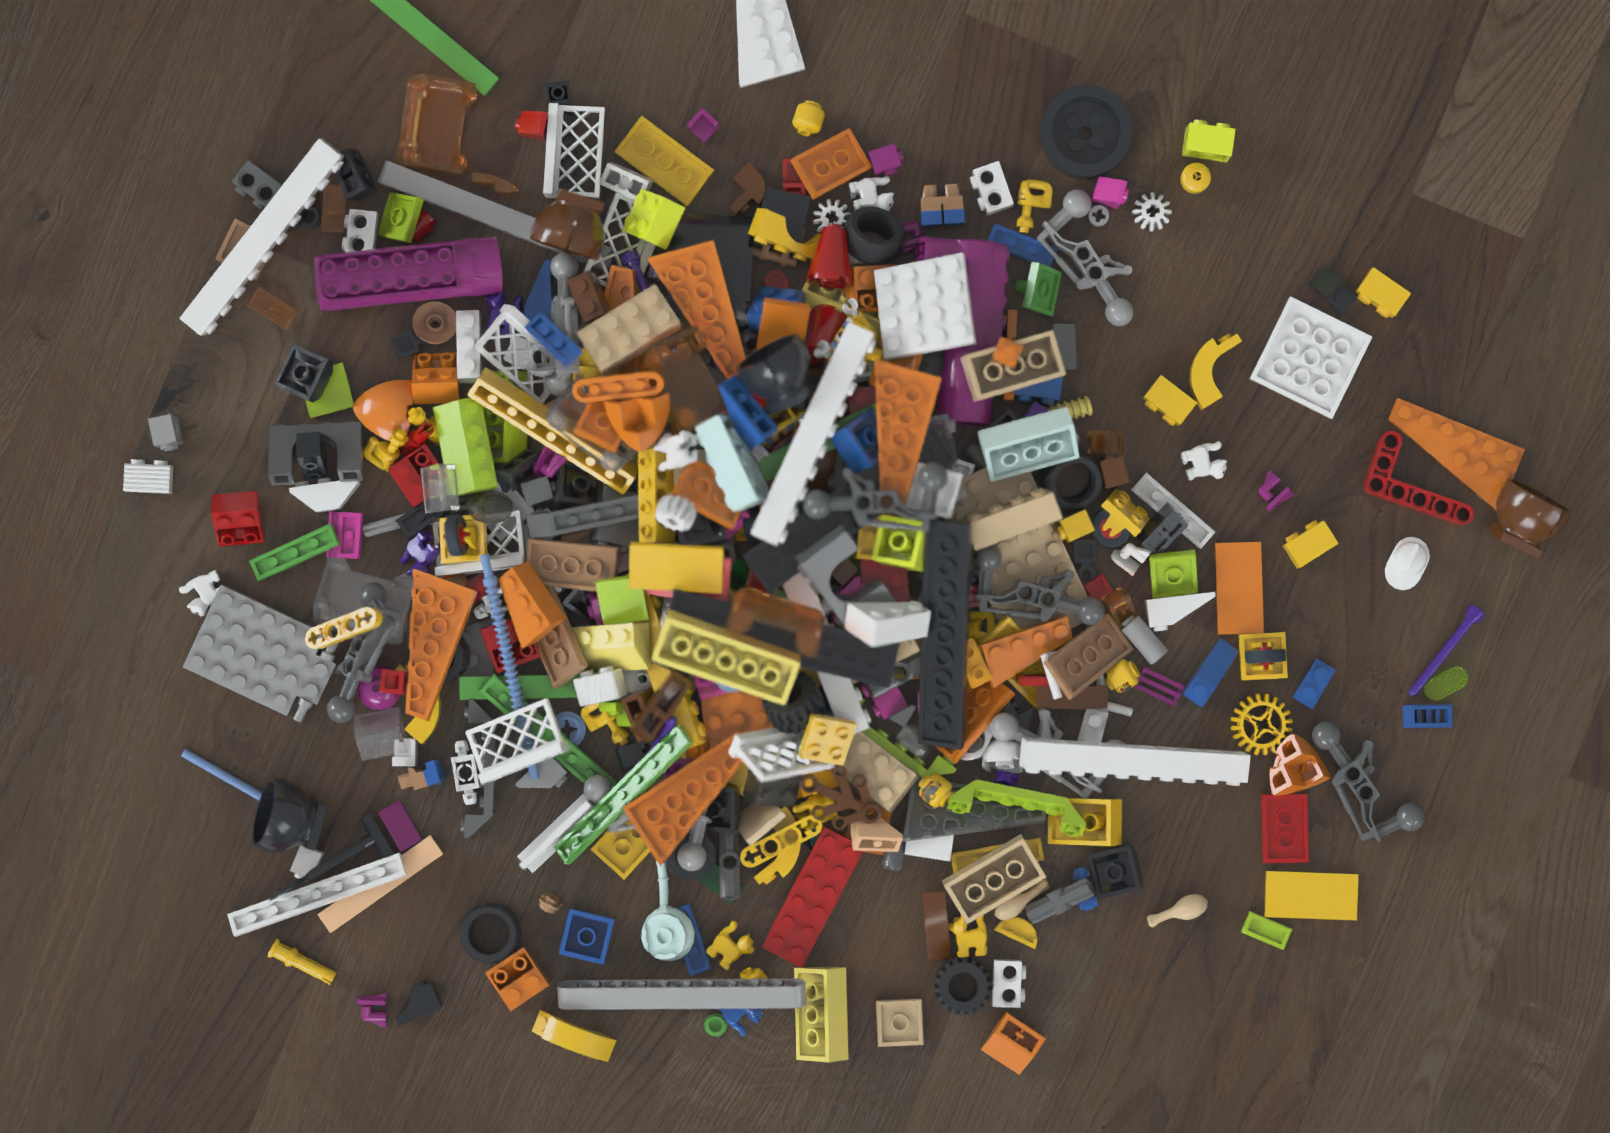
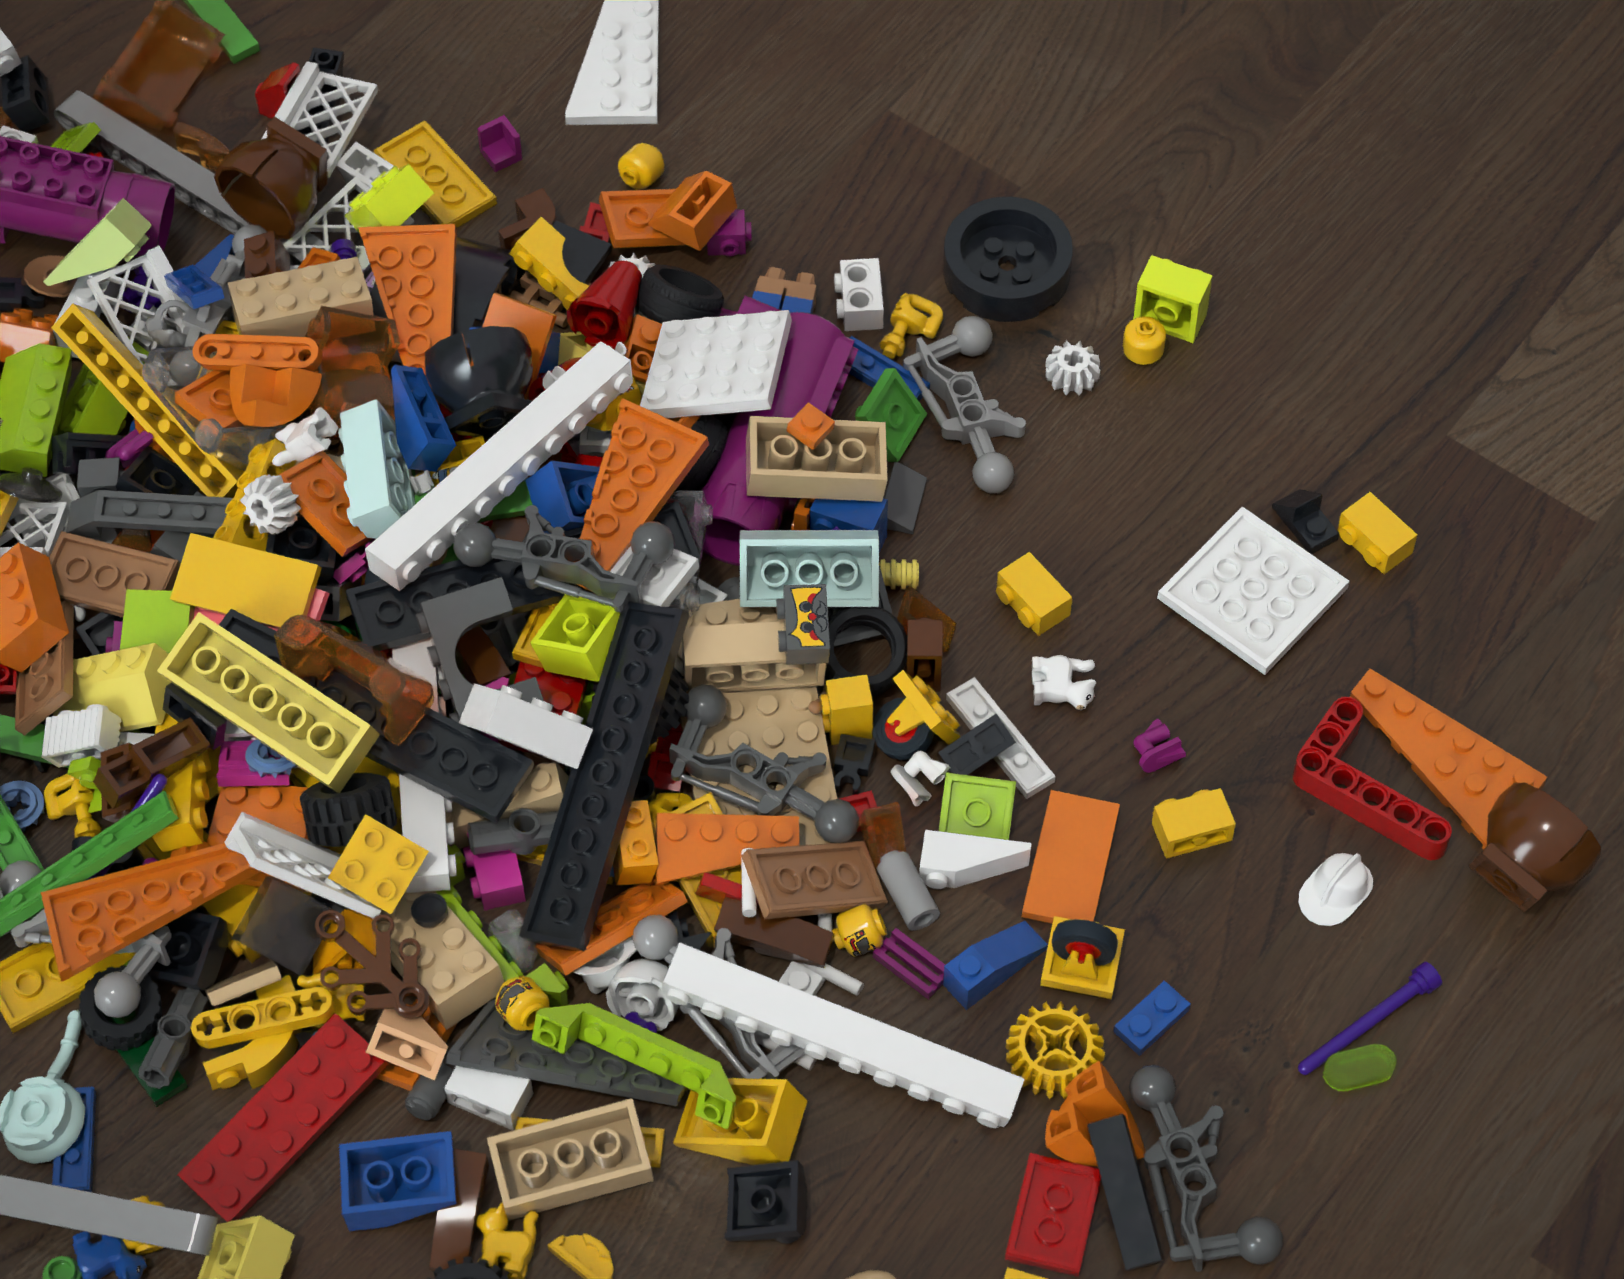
camera: 15 degrees right, 30 degrees down
(470, 313) = (110, 241): none -> yellowish green slope
(728, 948) = (127, 1168): yellow animal -> none
(860, 747) = (429, 910): none -> black piece
(861, 160) = (696, 209): none -> orange slope
(868, 193) = (693, 261): white animal -> none
(896, 919) = (396, 1179): none -> blue slope
(903, 715) = (509, 891): dark grey slope -> none
(1016, 904) = (591, 1211): tan piece -> none
(1045, 506) = (805, 624): none -> dark grey brick
(1060, 900) = (664, 1220): dark grey piece -> none
(1078, 874) = (708, 1238): blue bar -> none
(1102, 222) = (1002, 367): light grey bush -> none
(1110, 192) = (1021, 329): dark pink slope -> none
(1200, 375) = (1097, 558): yellow arch -> none
(1325, 808) = (1125, 1192): none -> black tile
(1414, 720) = (1317, 1117): blue slope -> none

